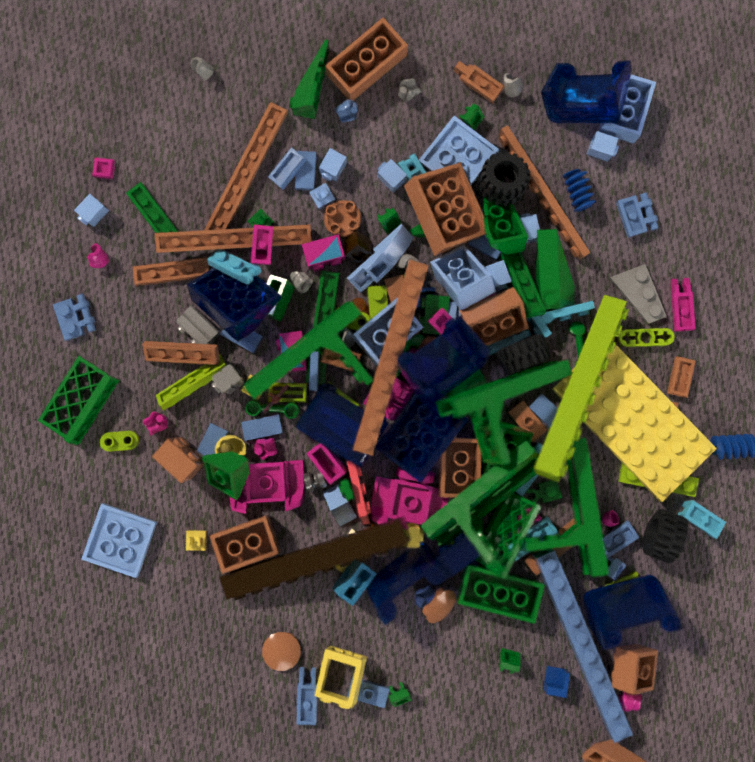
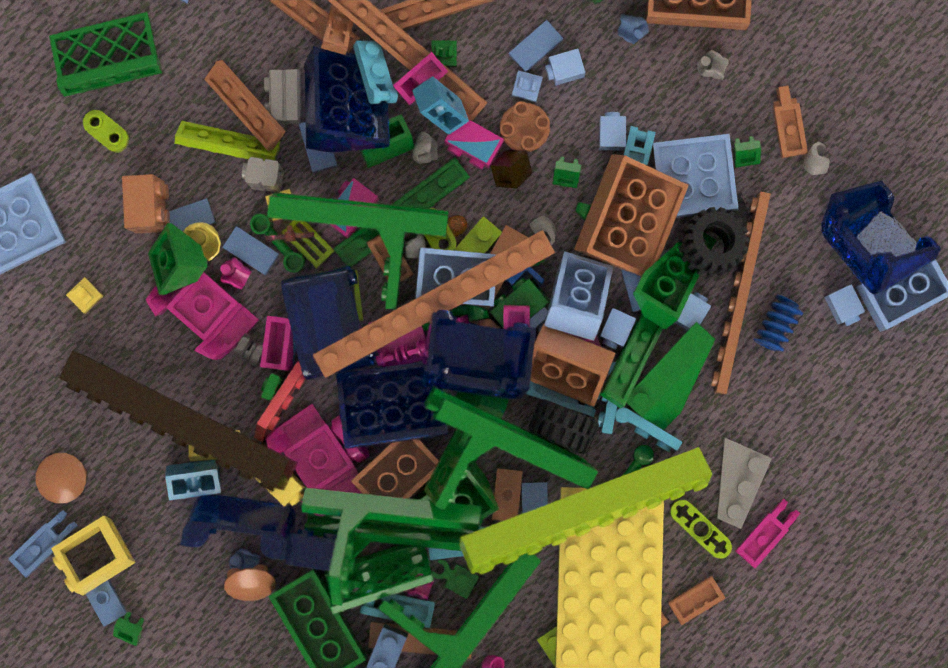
camera: 50 degrees right, 0 degrees up
(155, 422) = (156, 147): dark pink arm -> none
(192, 264) = (337, 32): none -> nougat plate
(245, 543) = (127, 343): nougat brick -> none
(287, 168) = (519, 27): medium blue tile -> none
(287, 248) = (440, 105): none -> dark azure brick
(314, 371) = (351, 247): medium blue tile -> none
(339, 505) = (248, 397): light blue slope -> none
(381, 262) = (522, 205): light blue slope -> none
(632, 216) = (805, 401): medium blue plate -> none

